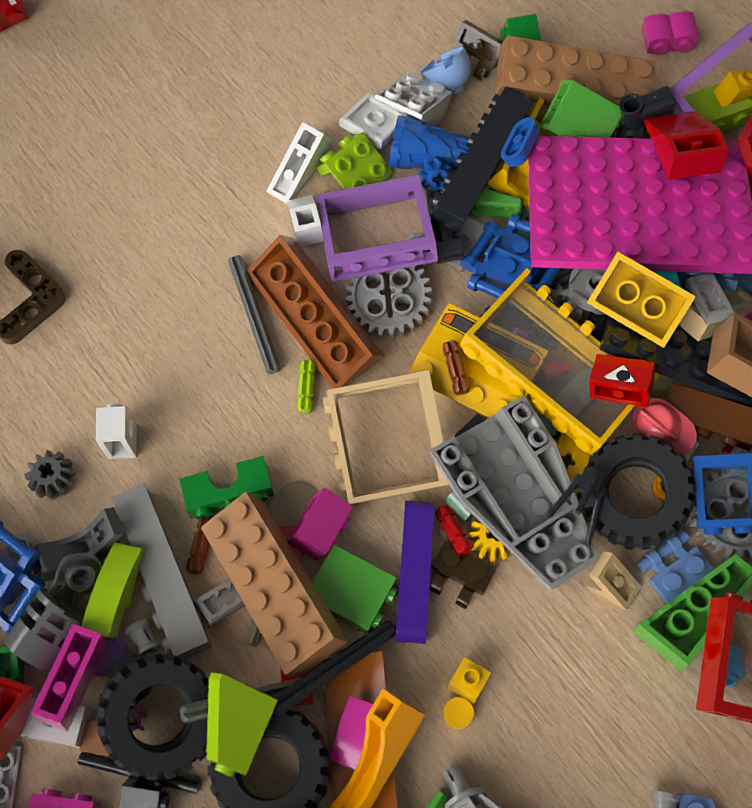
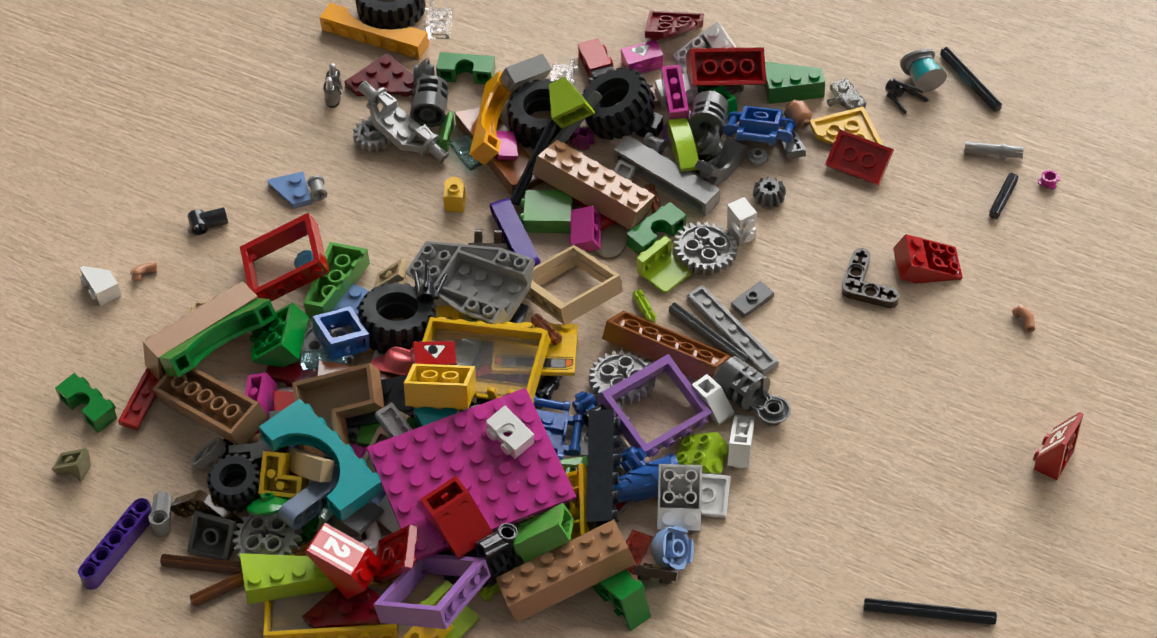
camera: 155 degrees right, 15 degrees down
(172, 336) = (752, 299): none -> plate
(206, 415) = (705, 248): none -> light grey gear
(222, 310) = (732, 330): none -> light grey tile
(251, 425) = (660, 266): none -> lime bracket
(256, 203) = (750, 391): none -> dark grey cylinder
(412, 774) = (462, 149): none -> clear light blue slope
(450, 280) = (584, 402): none -> blue gear
(478, 100) = (638, 545): none -> clear red plate
(520, 142) = (577, 479): blue plate -> none
(580, 201) = (506, 421): none -> white brick

